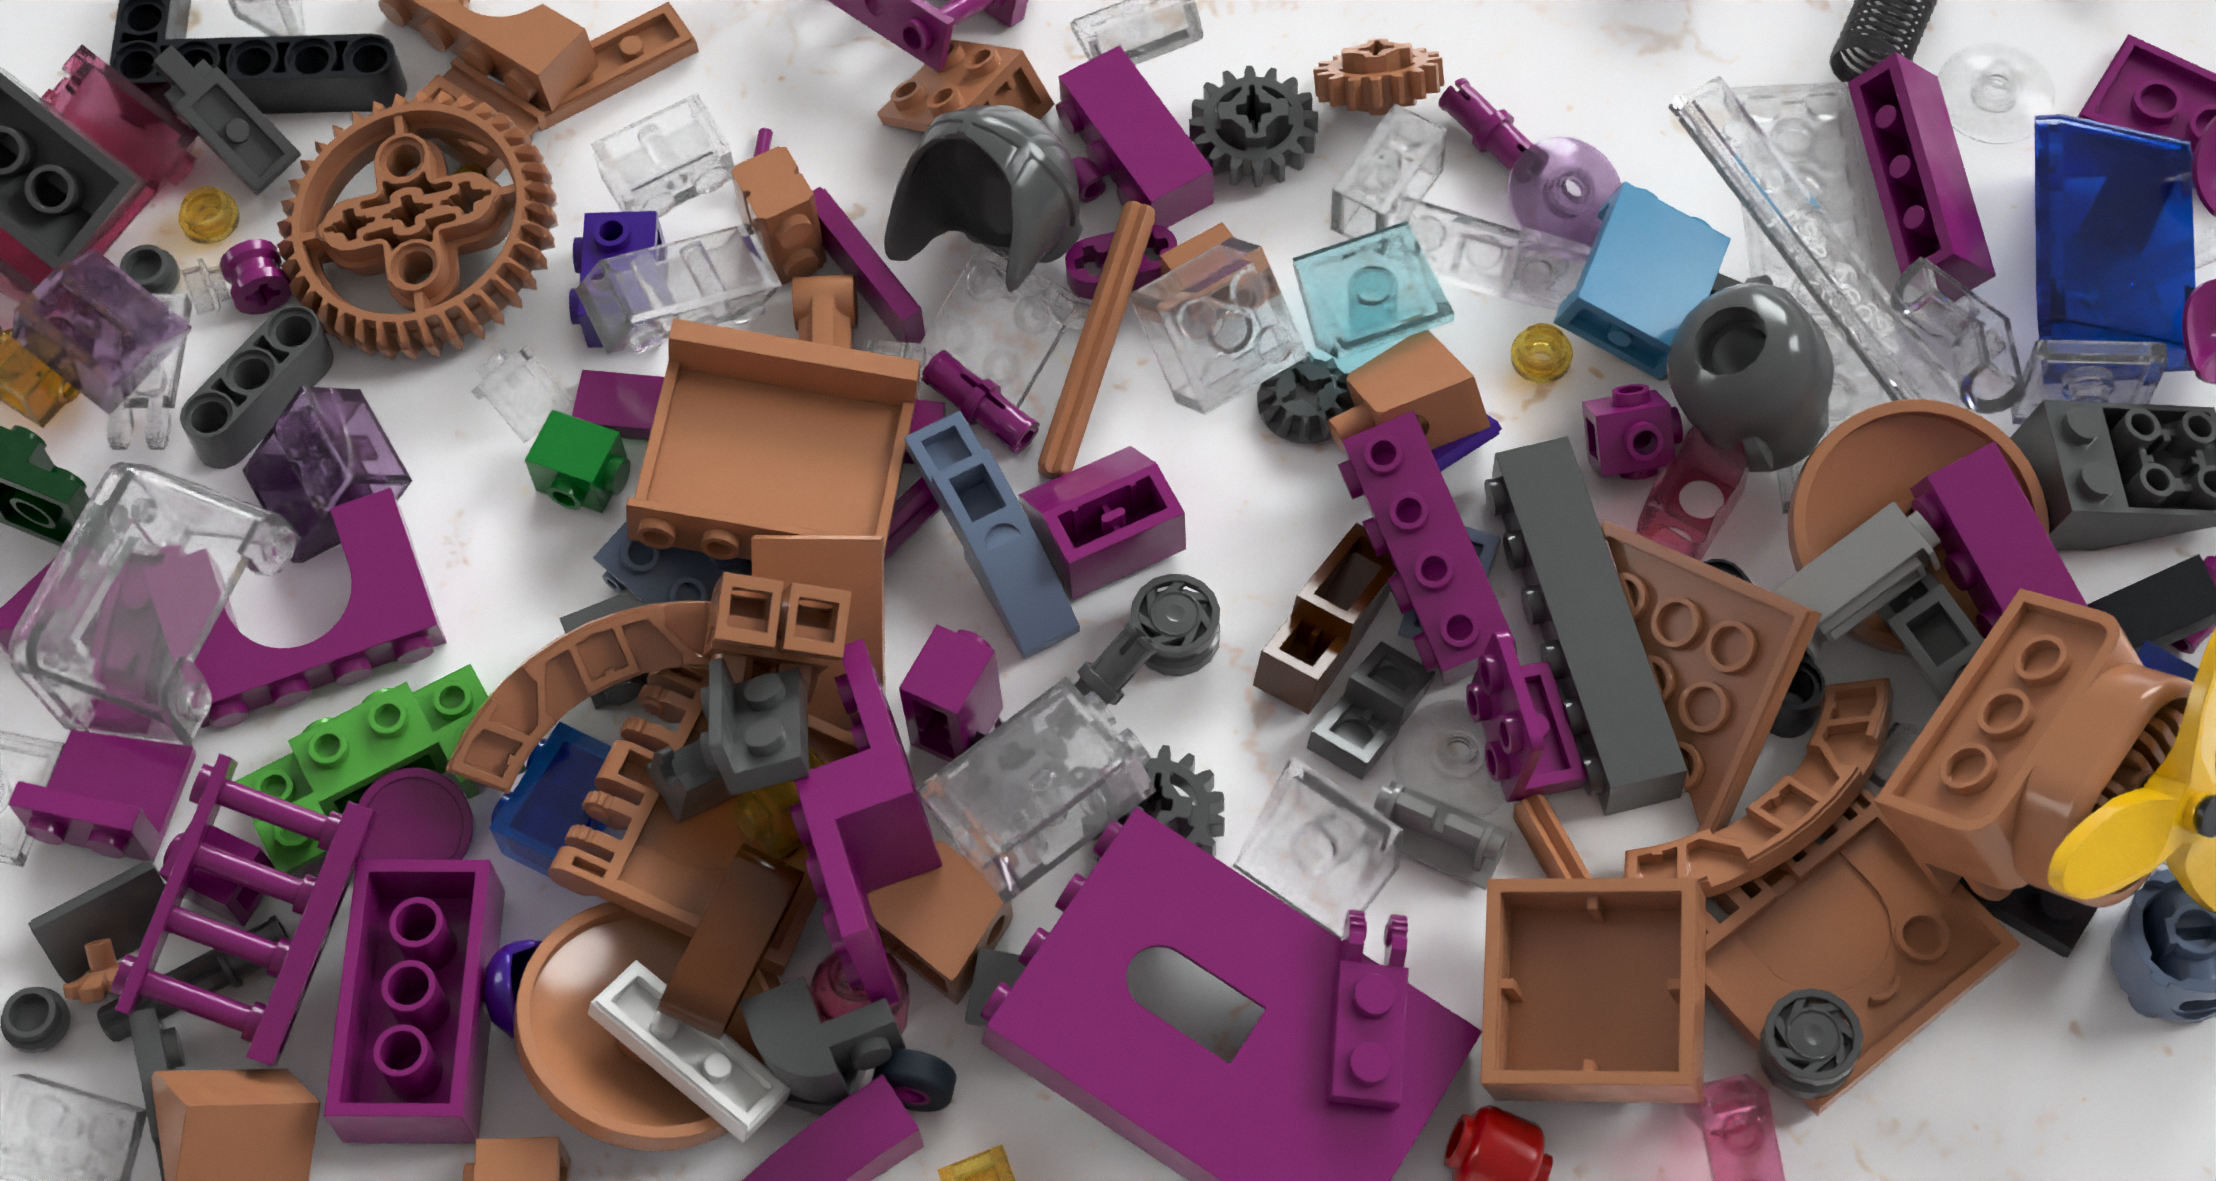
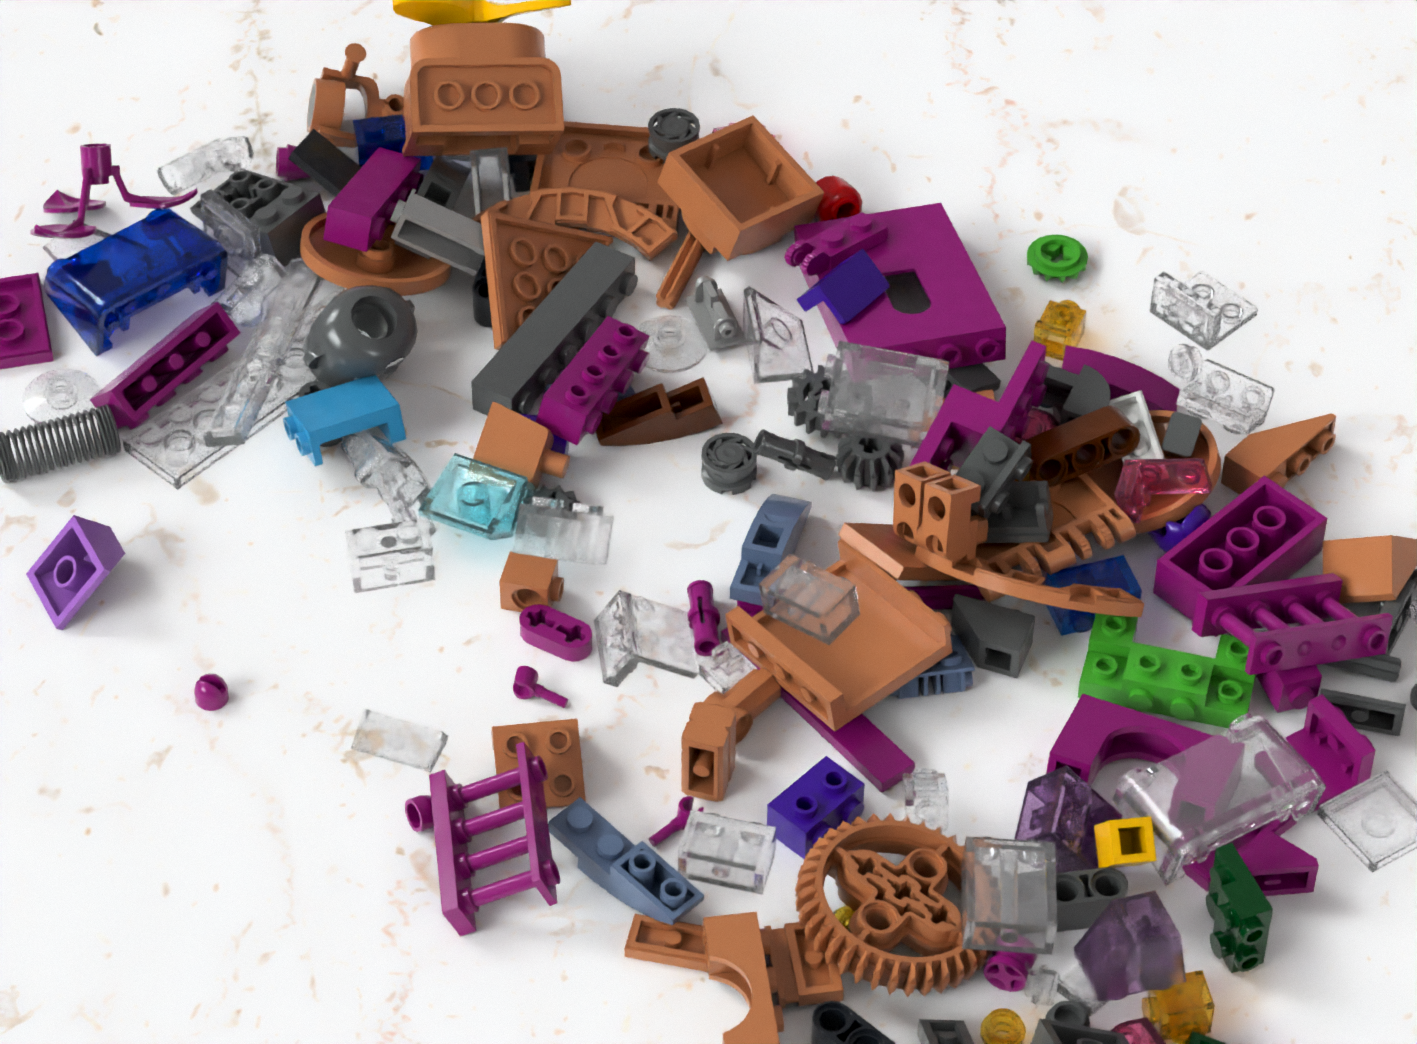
camera: 140 degrees left, 15 degrees down
(98, 980) = (1383, 680): nougat plant -> none
(219, 456) = (1125, 842): none -> yellow brick
(282, 278) = (1009, 895): none -> clear brick
(417, 817) = (1173, 637): magenta piece -> none
(578, 462) = (933, 735): green brick -> none
(595, 959) = (1158, 476): none -> clear pink bracket
(615, 1074) = (1181, 435): none -> dark grey slope
(691, 279) = (802, 743): clear brick -> none
(744, 67) = (622, 869): none -> sand blue slope
(841, 447) = (809, 599): none -> clear brick
(873, 277) = (691, 693): magenta tile -> none
(951, 693) = (868, 483): magenta brick -> none
(996, 181) = (584, 663): dark grey piece -> none
(1096, 340) = (595, 599): nougat axle -> none
(1106, 520) = (709, 516): magenta slope -> none
(1134, 137) = (481, 672): magenta brick -> none
(1257, 904) = (847, 287): none -> dark purple panel
(1280, 114) = (416, 632): dark grey gear -> none
(1371, 711) = (676, 375): dark grey slope -> none
(1378, 76) = (340, 590): nougat gear -> none
(1490, 127) = (307, 546): magenta pin -> none
(1523, 723) = (645, 293): magenta bracket -> none
(1540, 192) = (317, 492): clear purple dish -> none
(1541, 339) = (422, 444): clear yellow plate -> none
(1631, 432) = (437, 374): magenta brick -> none
(1695, 462) = (453, 334): clear pink piece -> none

